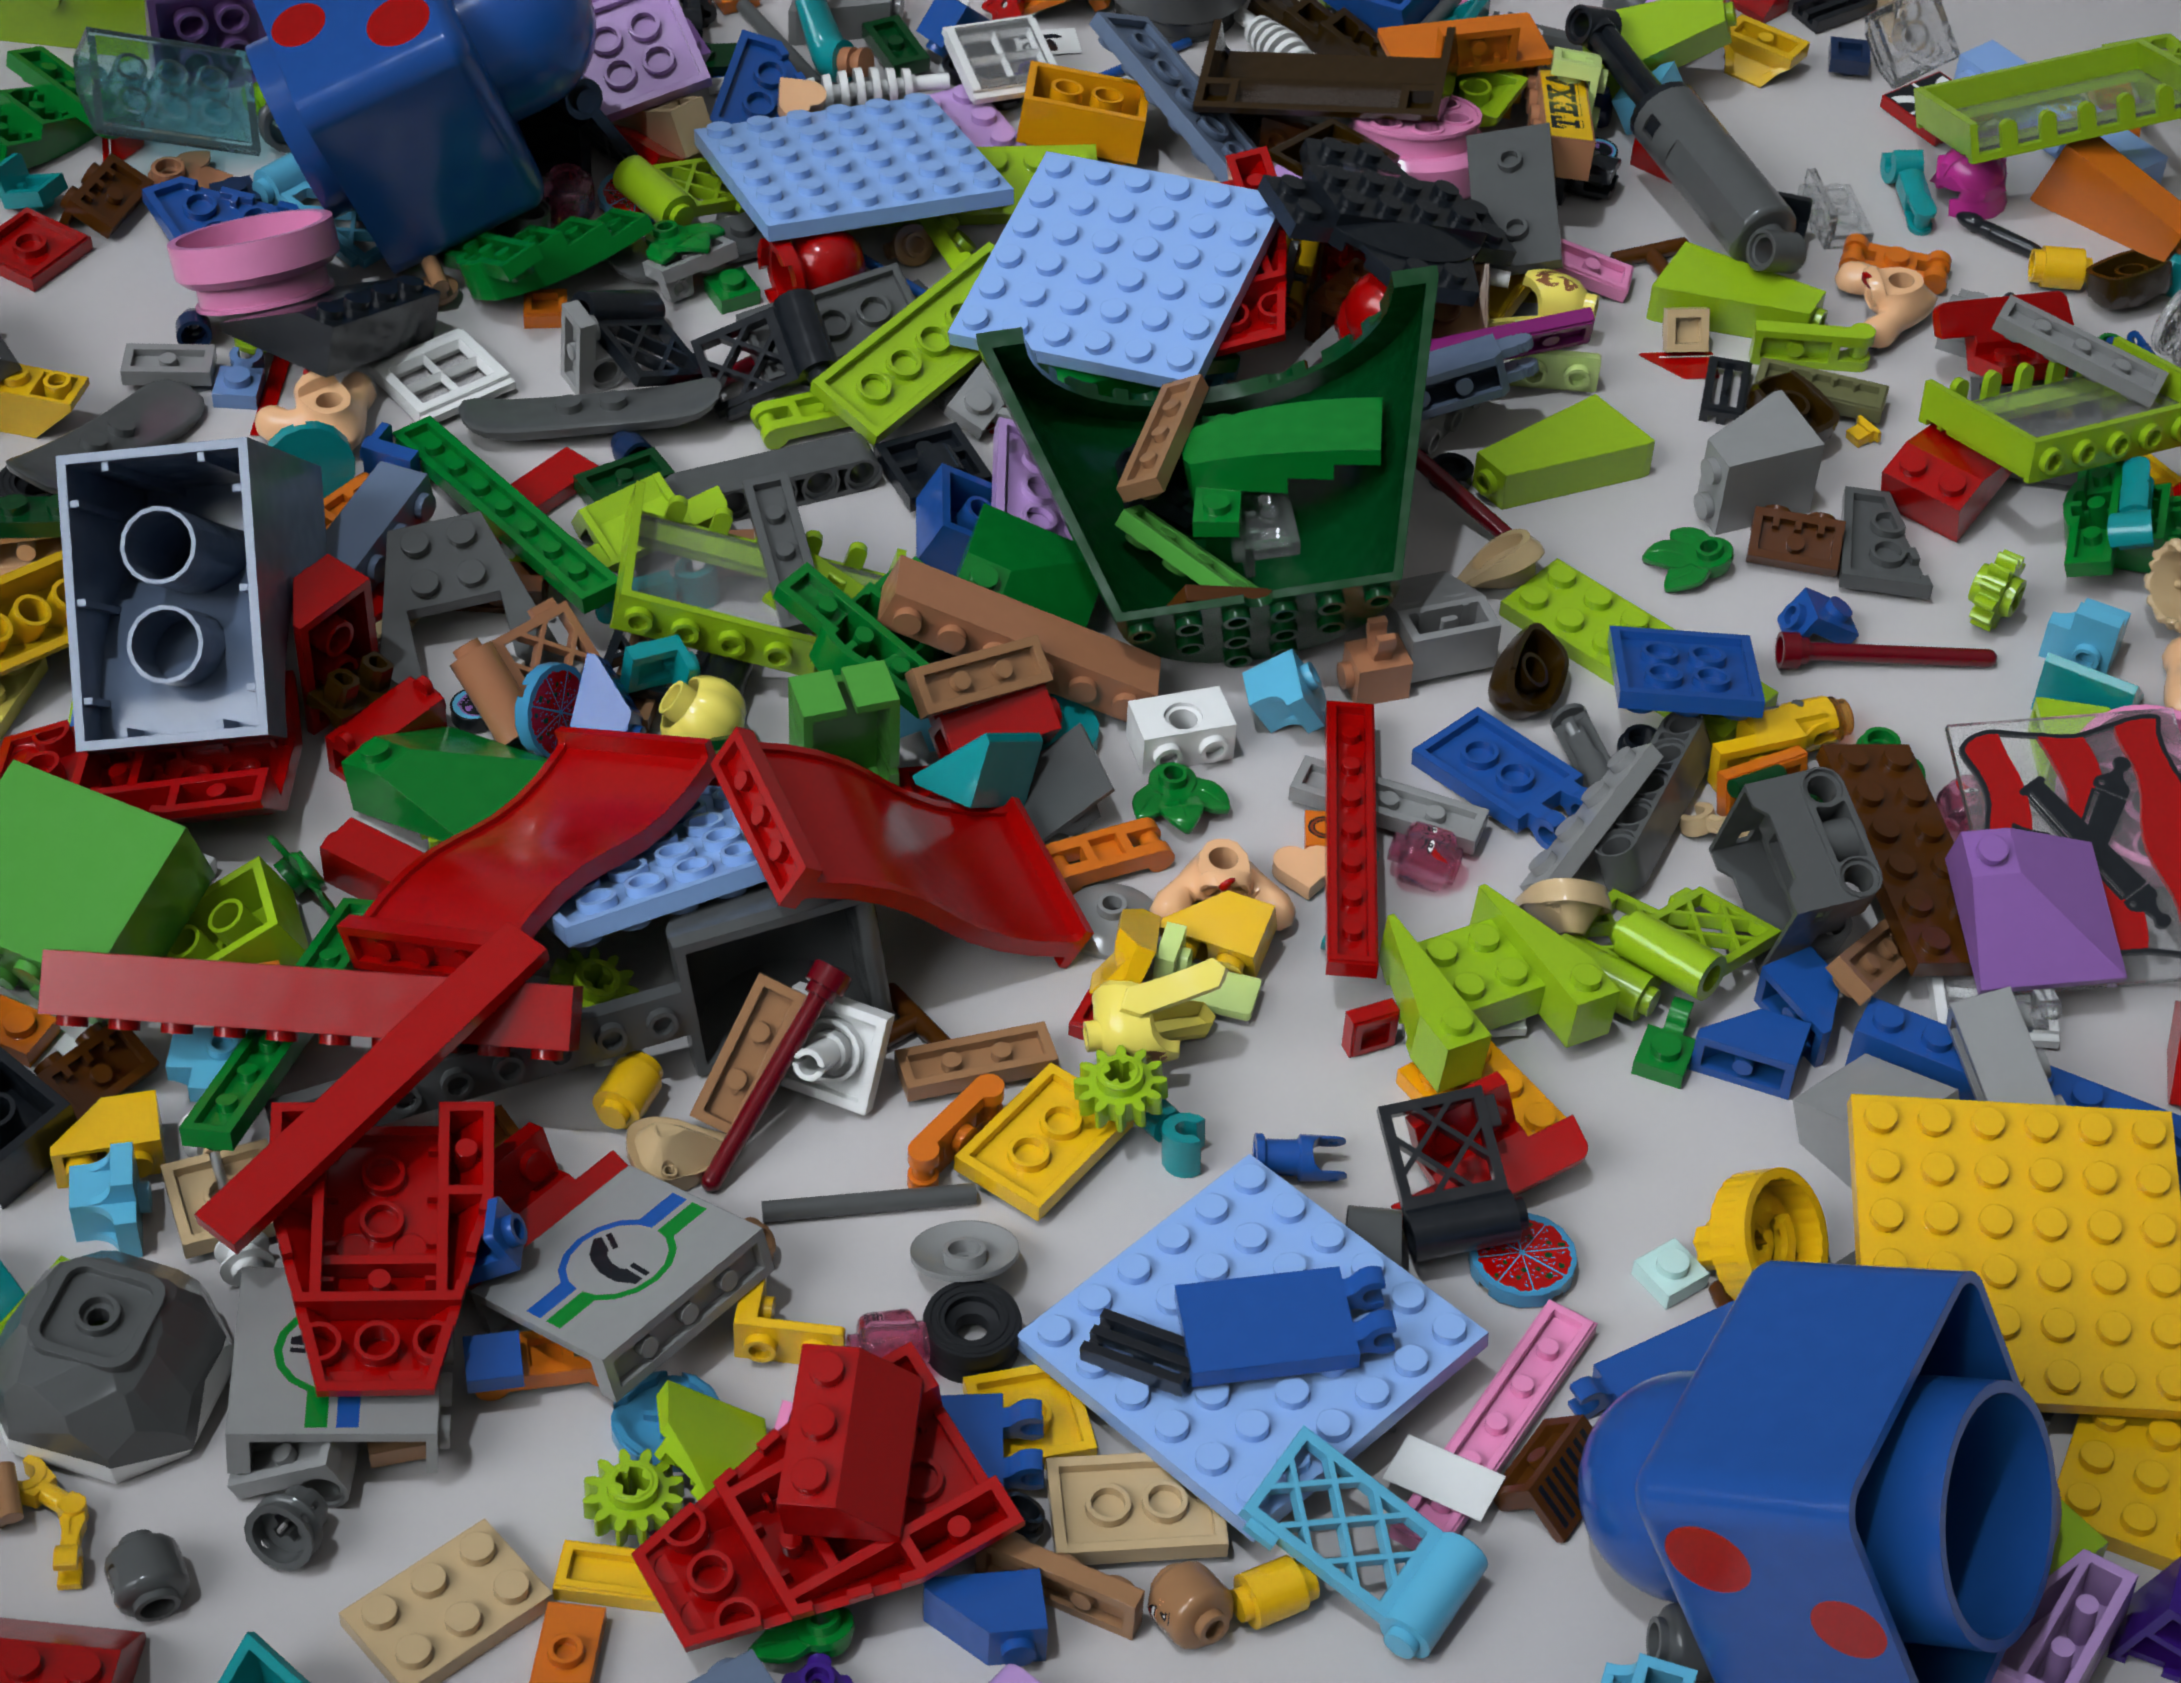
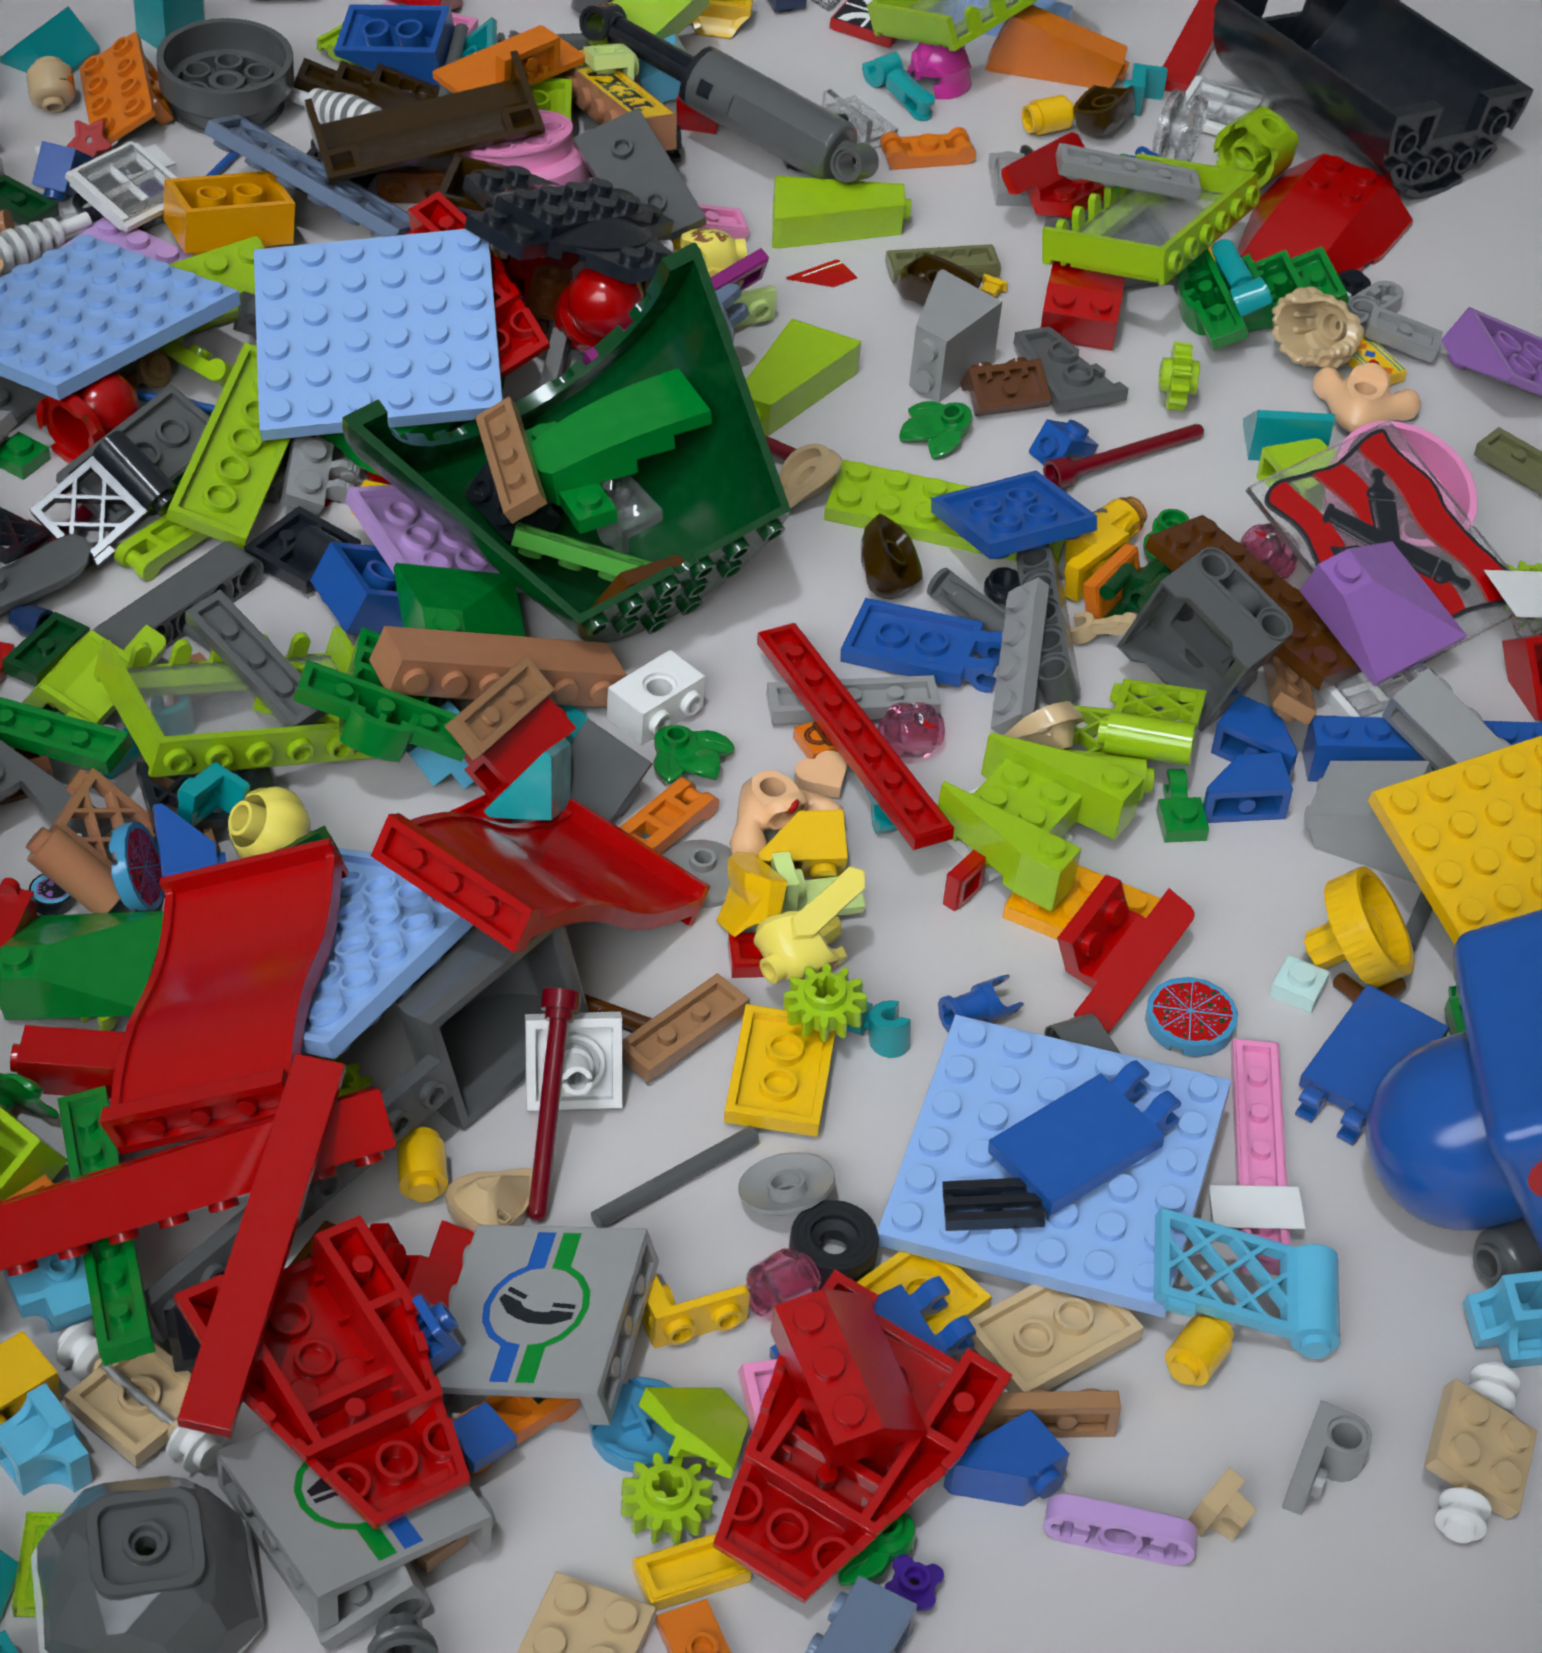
camera: 30 degrees left, 0 degrees up
(747, 1051) = (515, 1093): medium nougat plate -> none
(849, 716) = (412, 779): bright green piece -> none
(952, 1129) = (710, 1090): orange plate -> none
(1190, 1604) = (1149, 1387): medium nougat head -> none
(1286, 693) = (720, 637): medium azure brick -> none
(1376, 666) = (771, 592): nougat brick -> none
(1443, 626) = (809, 550): light grey slope -> none
(1462, 1216) = (1142, 999): black piece -> none
(1547, 1475) = (1328, 1167): reddish brown panel -> none
(1652, 253) = (747, 195): reddish brown piece -> none
(1686, 329) = (814, 247): tan tile -> none
(1723, 410) = (865, 286): black tile -> none
(1813, 345) = (914, 230): lime plate -> none
(1891, 293) = (946, 170): light nougat head -> none
(1996, 233) = (986, 103): black piece -> none
(2086, 636) = (1259, 388): medium azure brick -> none

